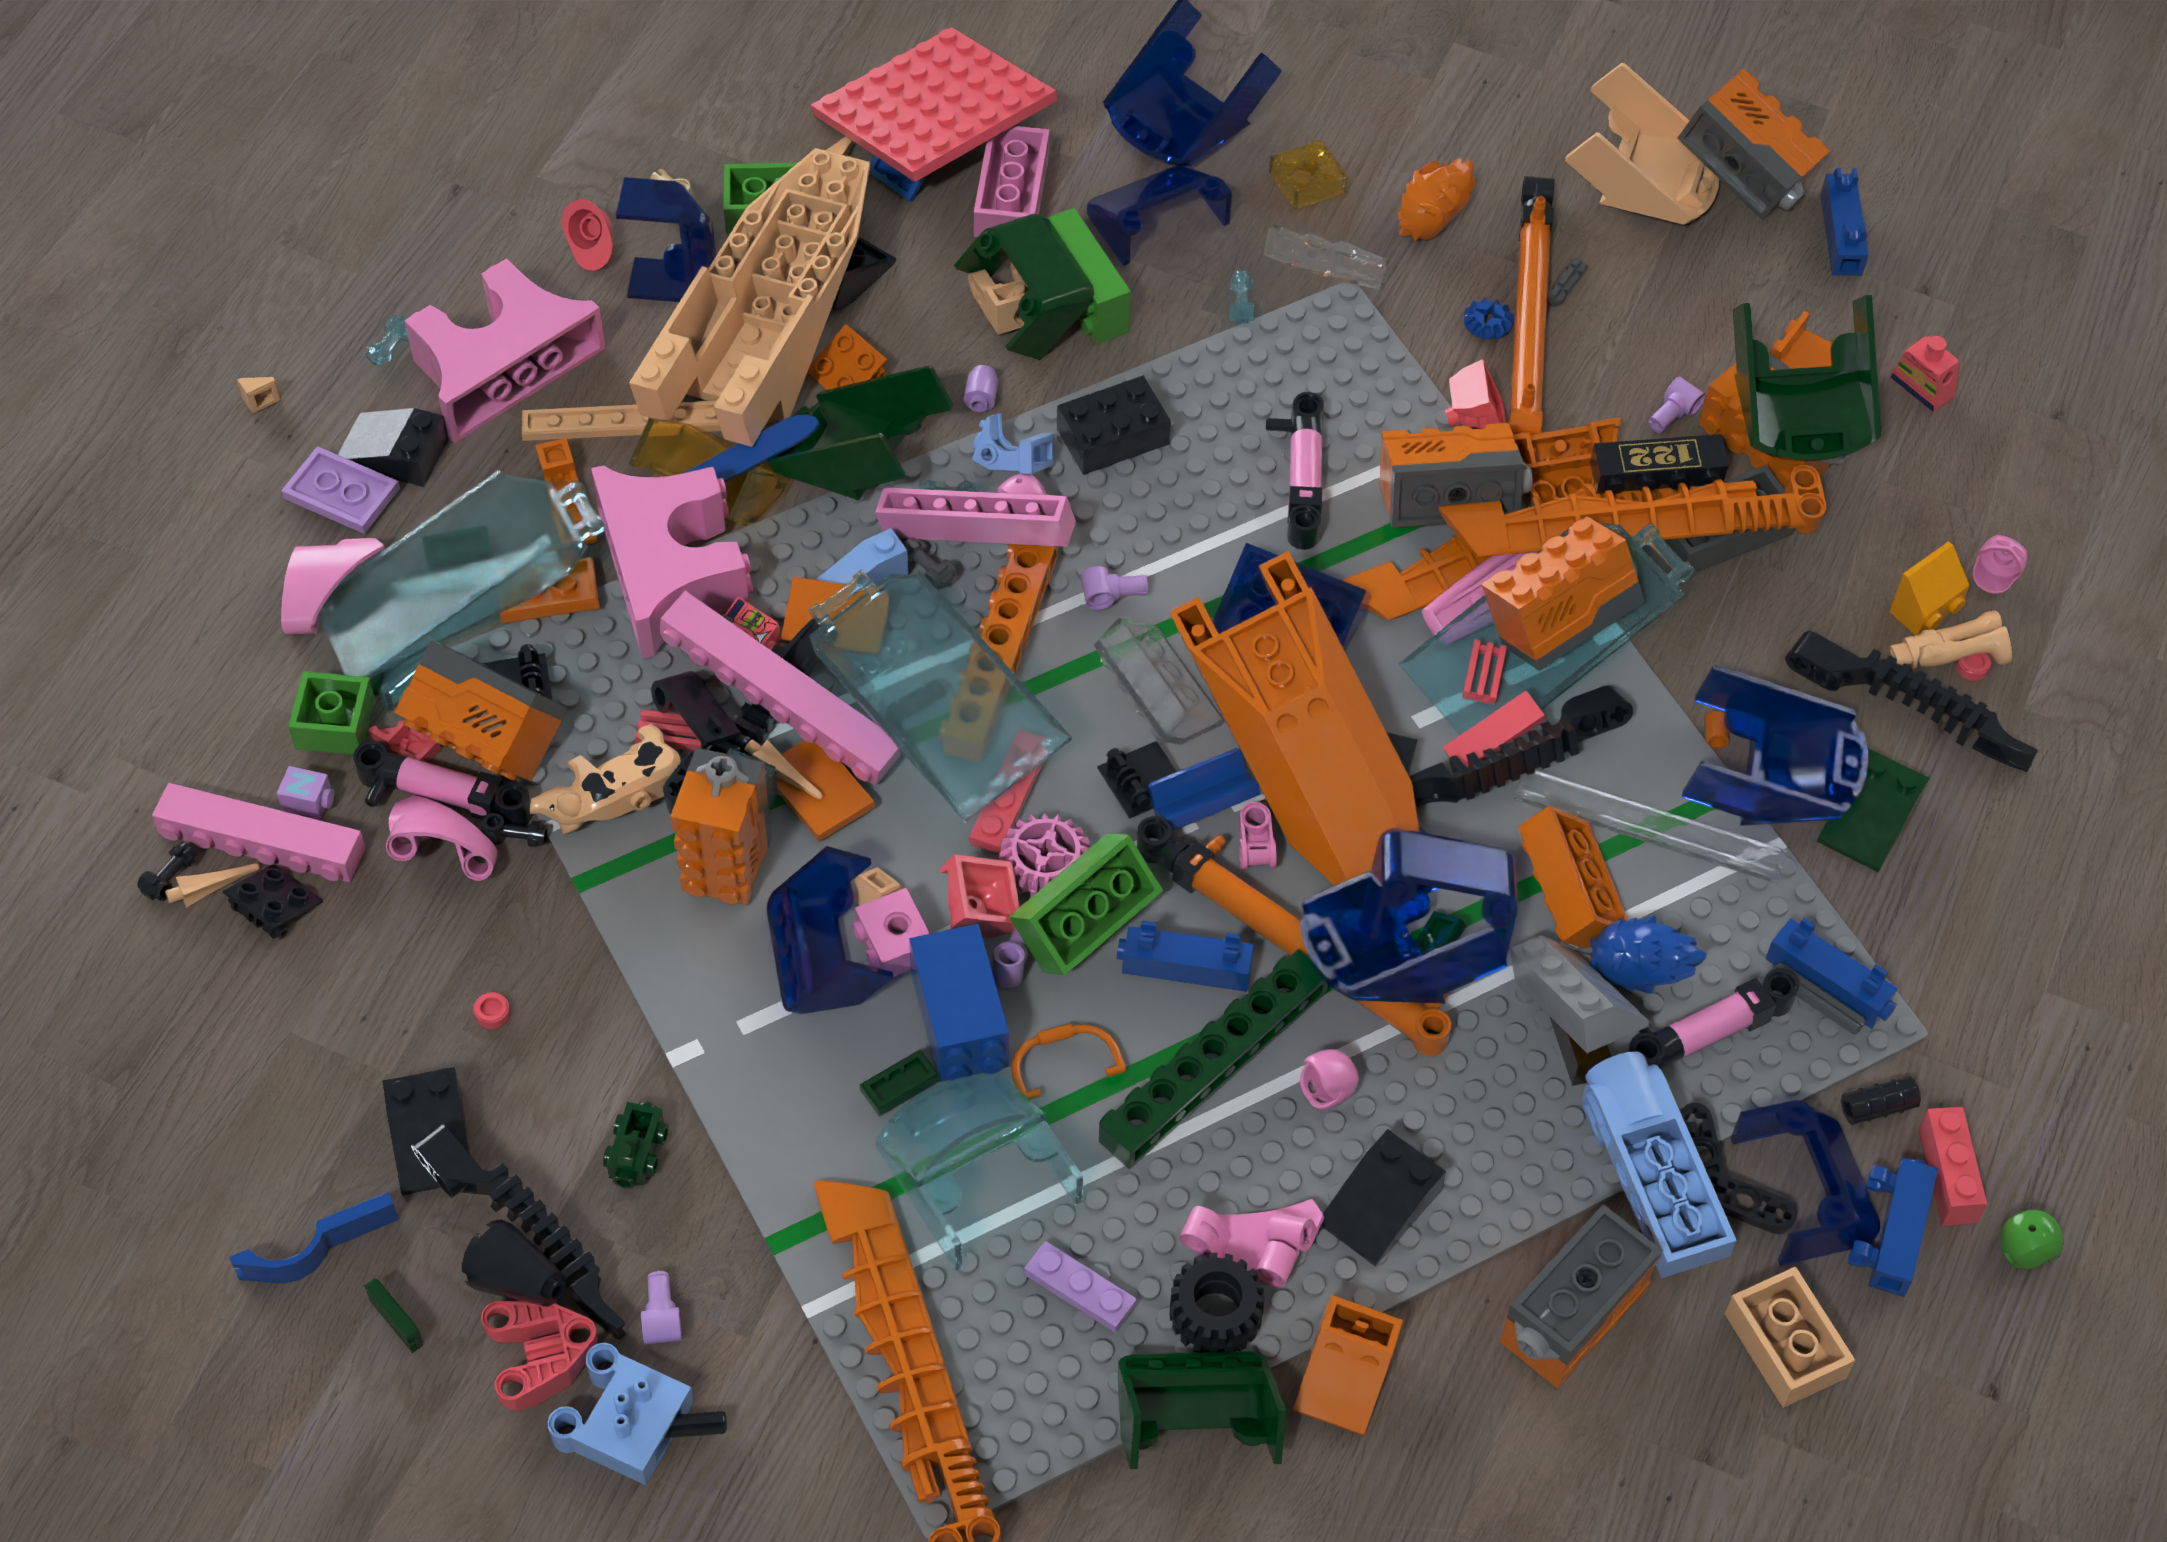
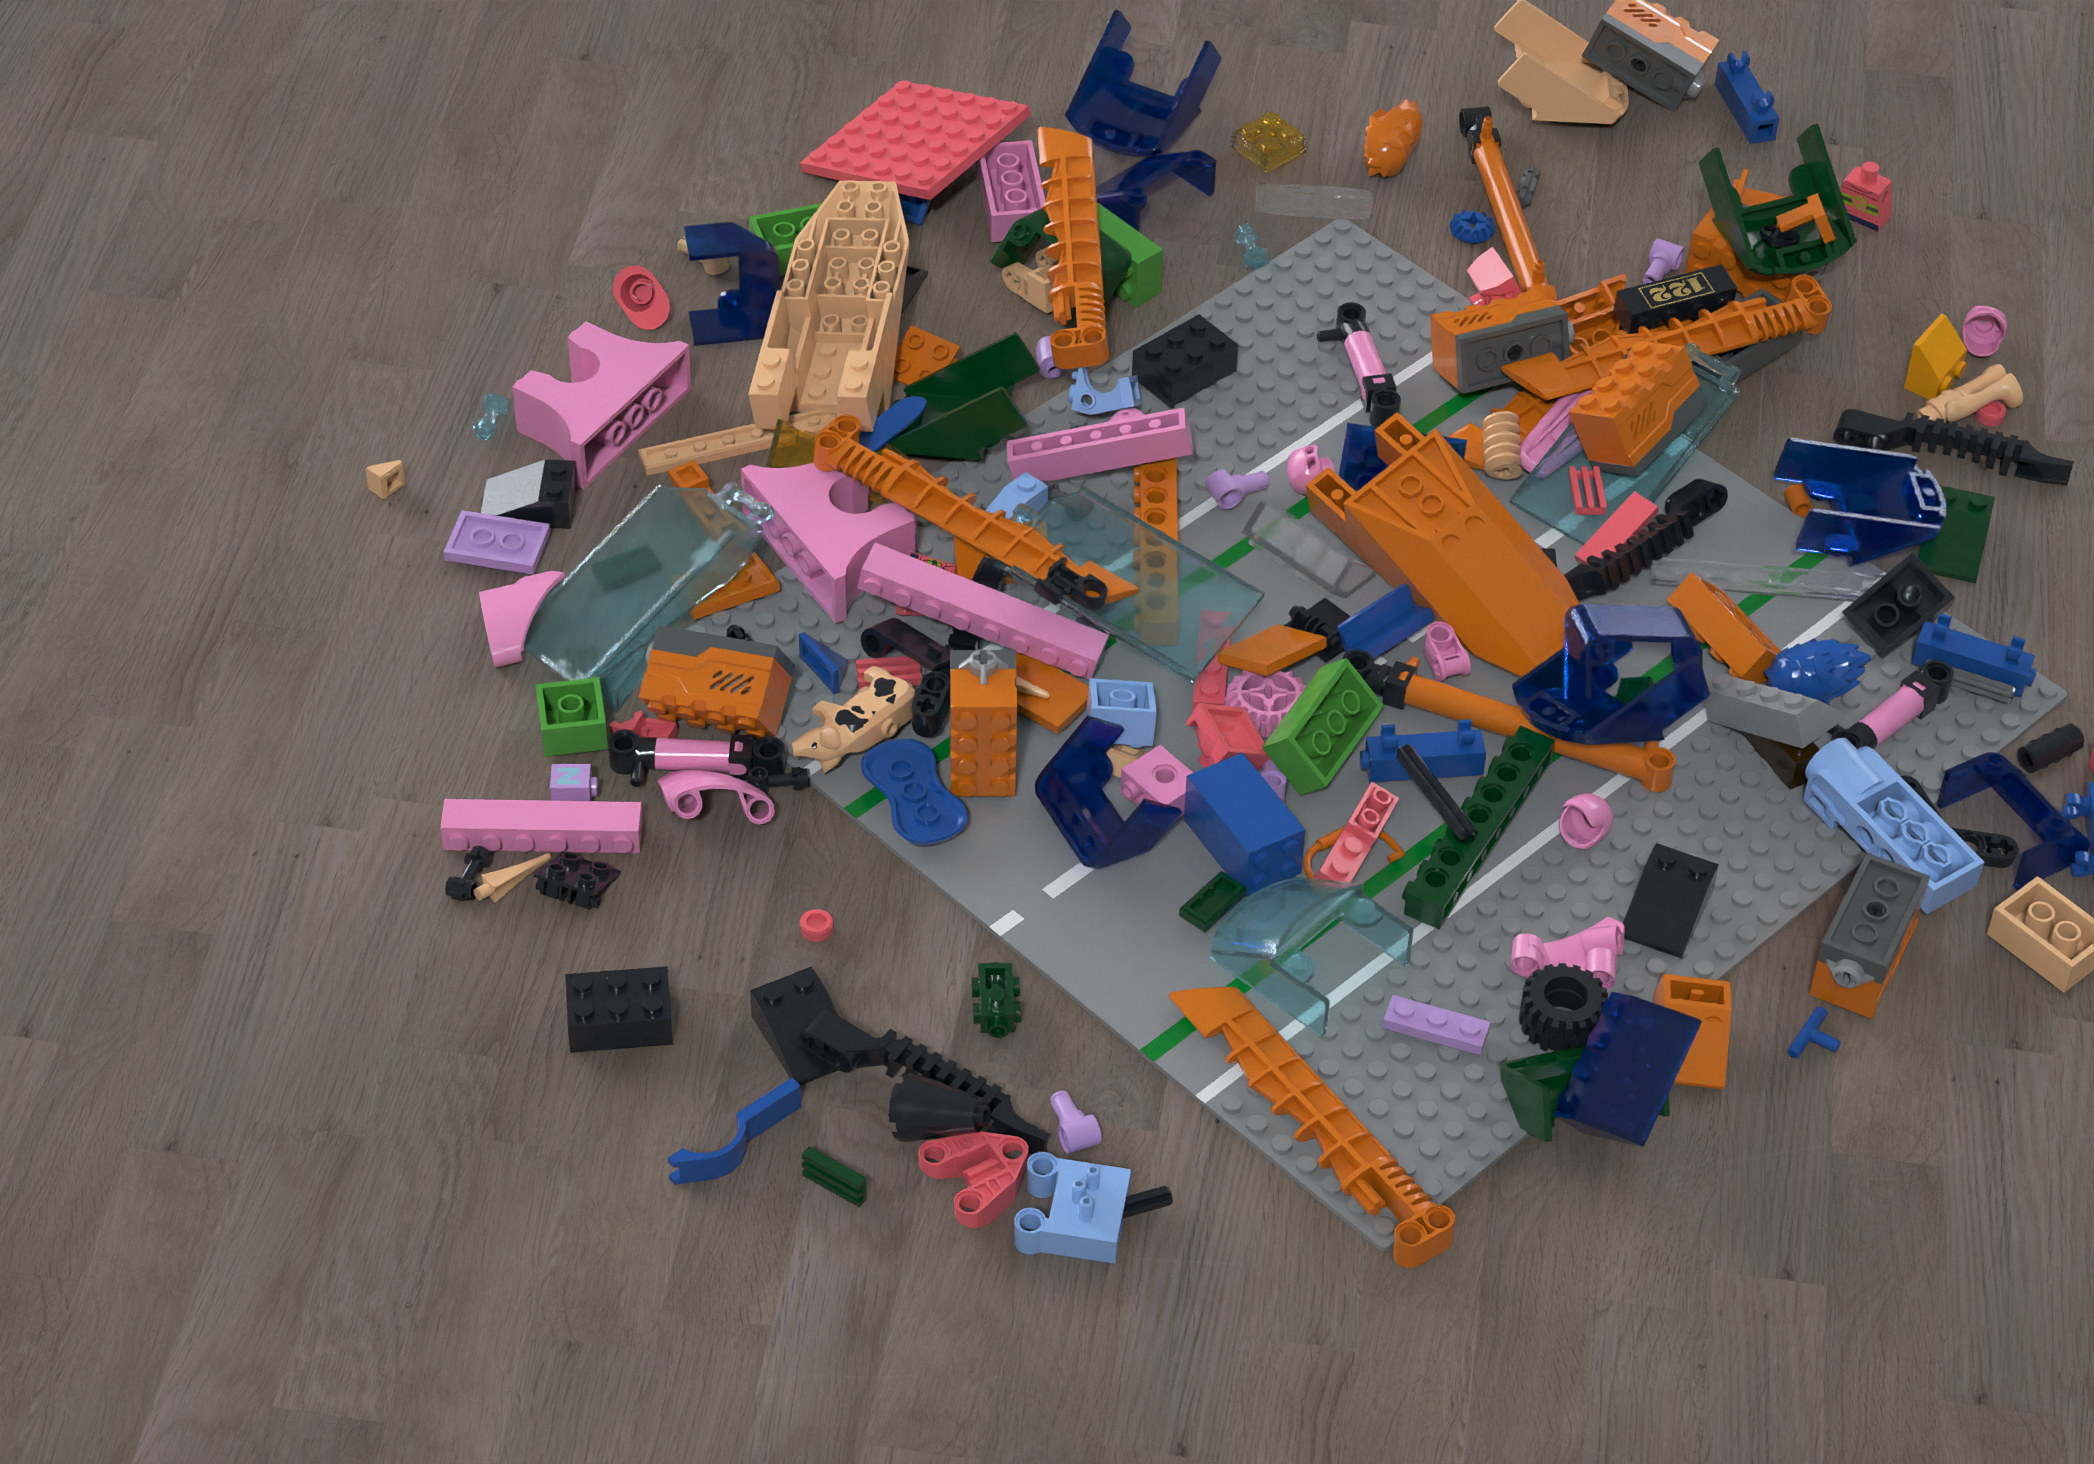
camera: 15 degrees left, 10 degrees down
(252, 1066) = (618, 1009): none -> black brick
(612, 704) = (822, 661): none -> blue slope
(642, 897) = (919, 802): none -> blue plate
(816, 601) = (922, 494): none -> orange piece
(872, 678) = (1063, 580): none -> black piece
(886, 834) = (1125, 704): none -> light blue brick
(1038, 250) = (1074, 221): none -> orange piece
(1070, 796) = (1272, 650): none -> orange tile
(1074, 1045) = (1358, 835): none -> coral slope
(1173, 1013) = (1435, 792): none -> black axle
(1190, 581) = (1304, 466): none -> bright pink helmet
(1243, 1406) = (1626, 1069): none -> clear blue slope
(1406, 599) = (1502, 445): none -> light nougat piece
(1483, 1390) = (1811, 1033): none -> blue piece
(1768, 892) = (1899, 605): none -> black slope
(1842, 395) = (1797, 217): none -> orange piece

